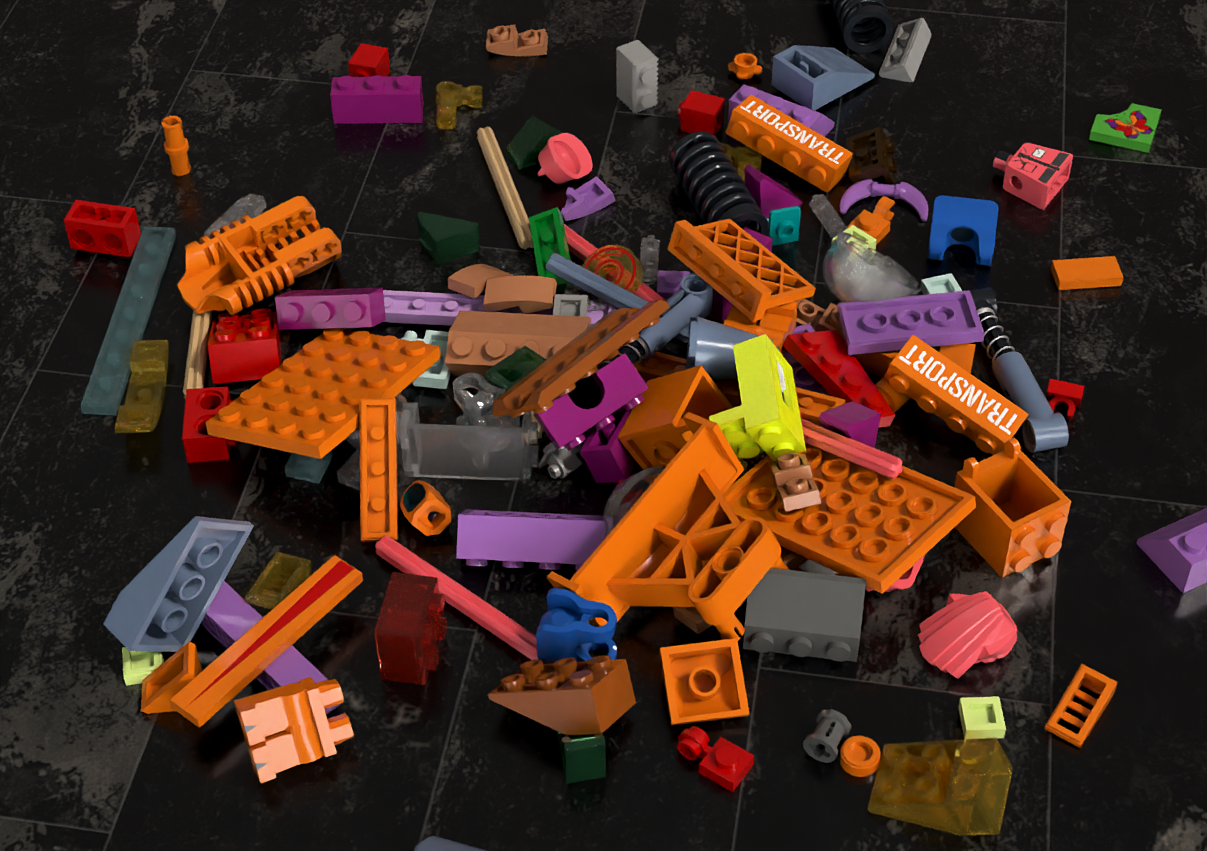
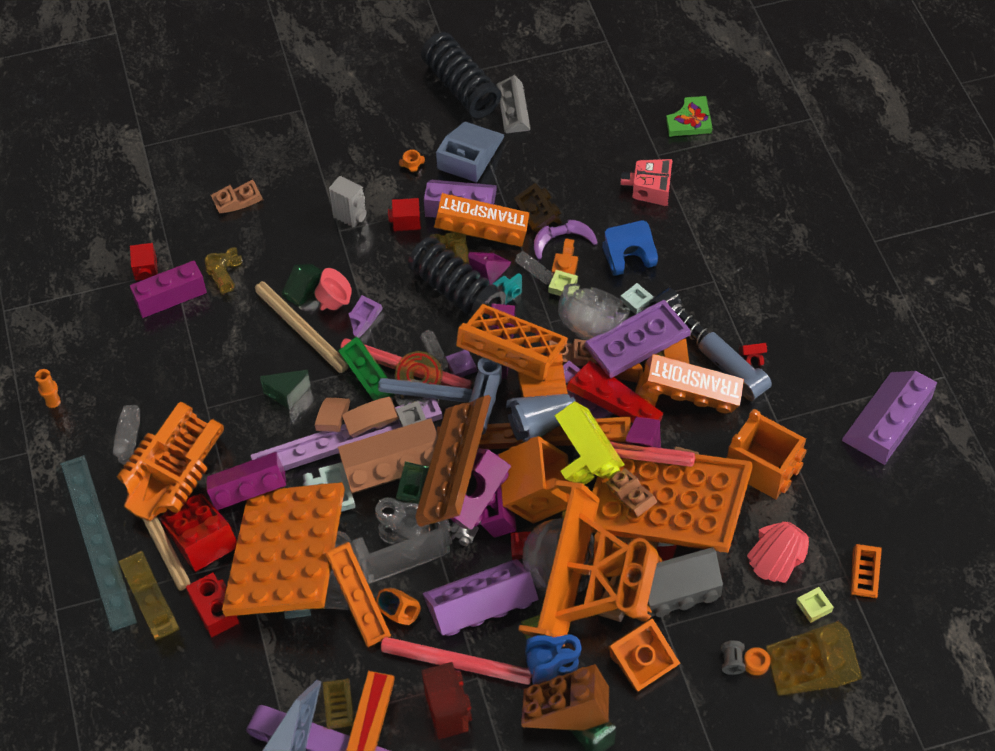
camera: 25 degrees left, 10 degrees up
(102, 228) = (36, 479): red brick -> none
(722, 763) = (681, 701): red plate -> none
(1086, 273) = (719, 248): orange tile -> none

